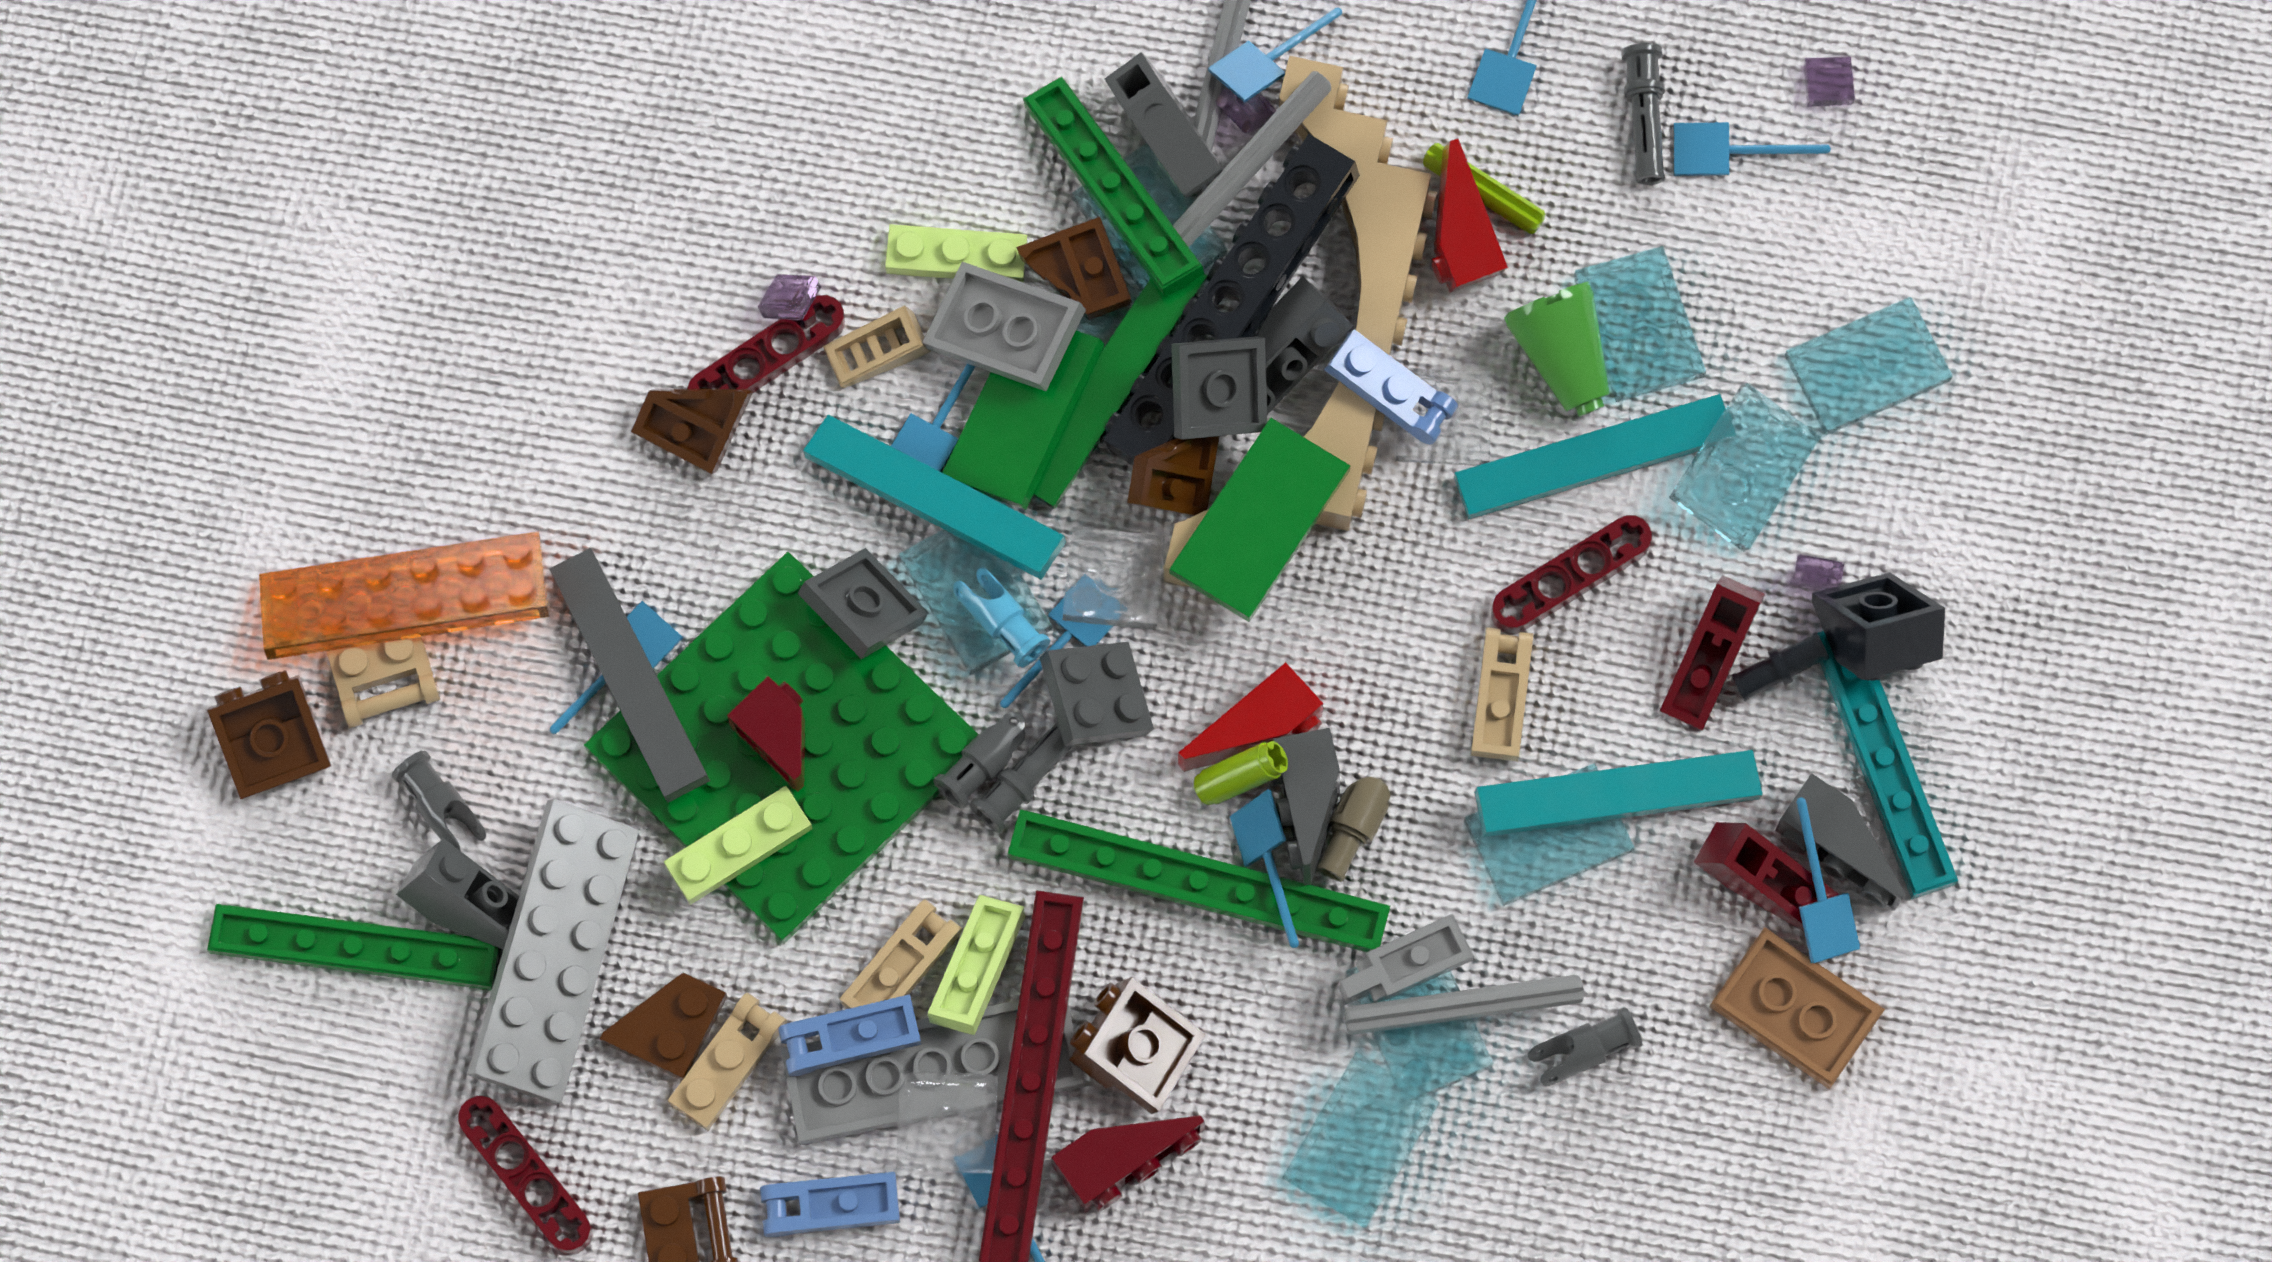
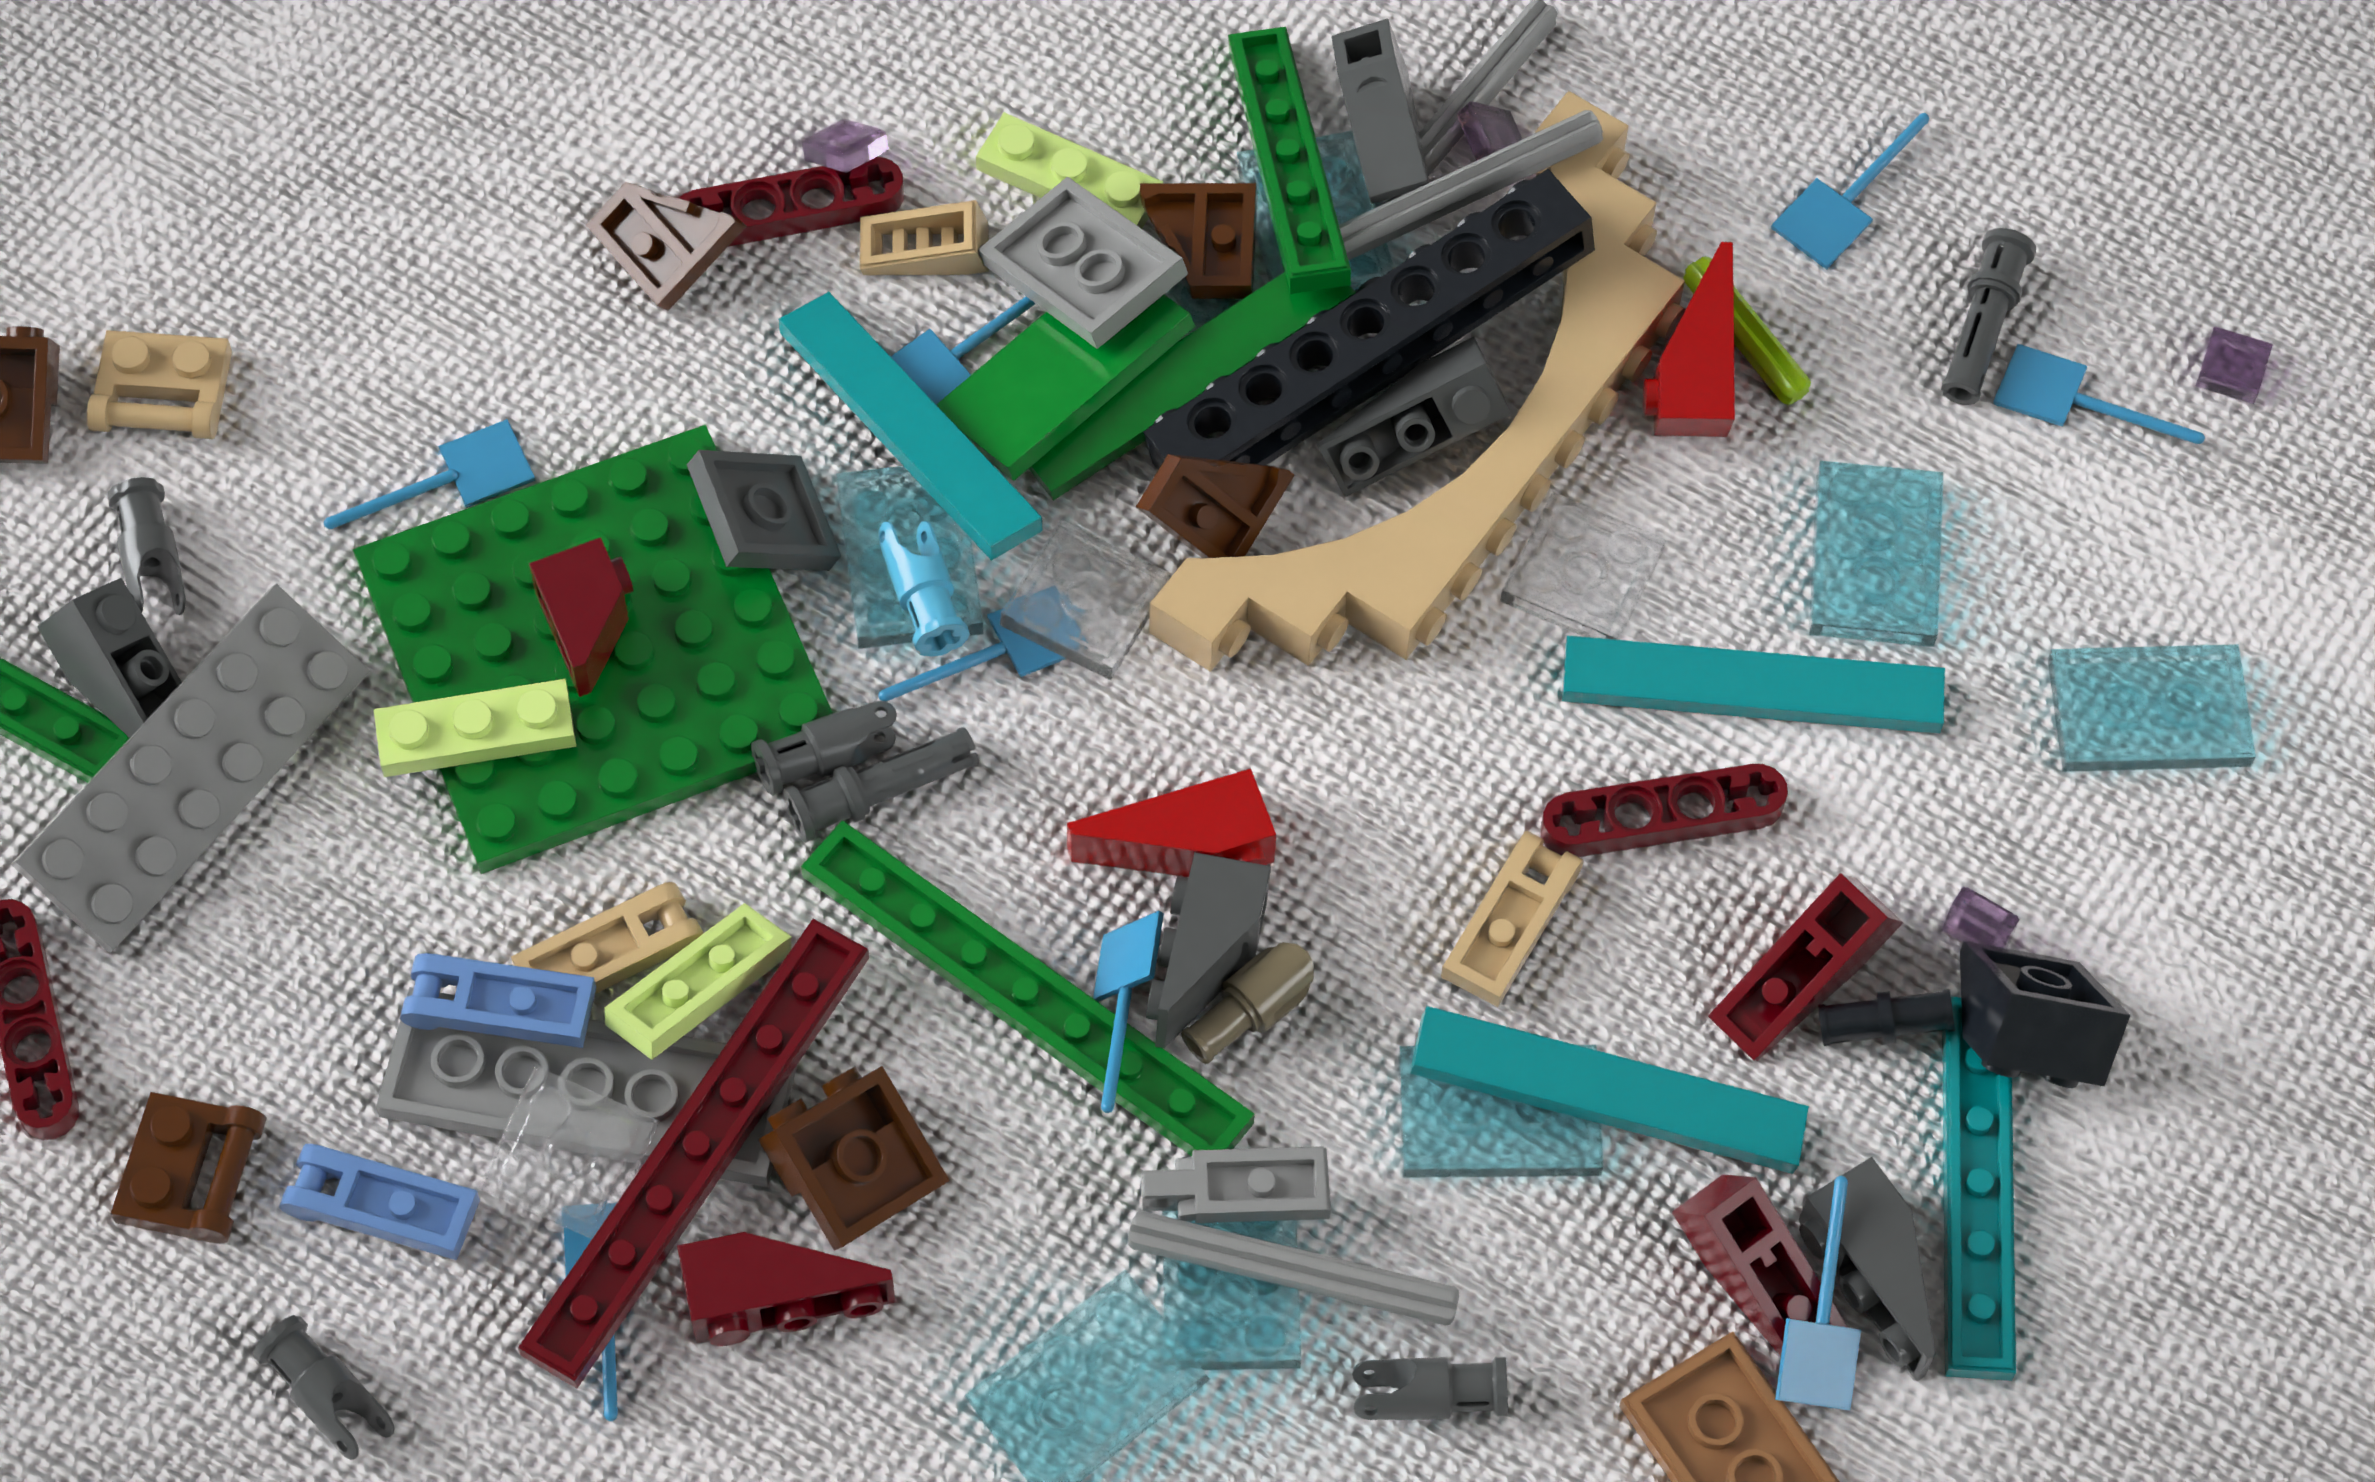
camera: 20 degrees right, 10 degrees down
(403, 595) = (226, 304): clear orange plate -> none
(629, 675) = (443, 489): dark grey tile -> none
(669, 1025) = (292, 912): reddish brown wing -> none
(726, 1063) = (336, 983): tan plate -> none
(1096, 693) = (1000, 721): dark grey plate -> none
(1219, 387) = (1309, 415): dark grey plate -> none
(1240, 773) = (1134, 878): lime piece -> none
(1250, 71) = (1518, 94): dark azure piece -> none
(1259, 519) = (1292, 589): green tile -> none
(1390, 387) = (1525, 498): plate -> none
(1565, 346) = (1768, 532): bright green cone -> none
(1744, 467) = (1940, 764): clear light blue plate -> none

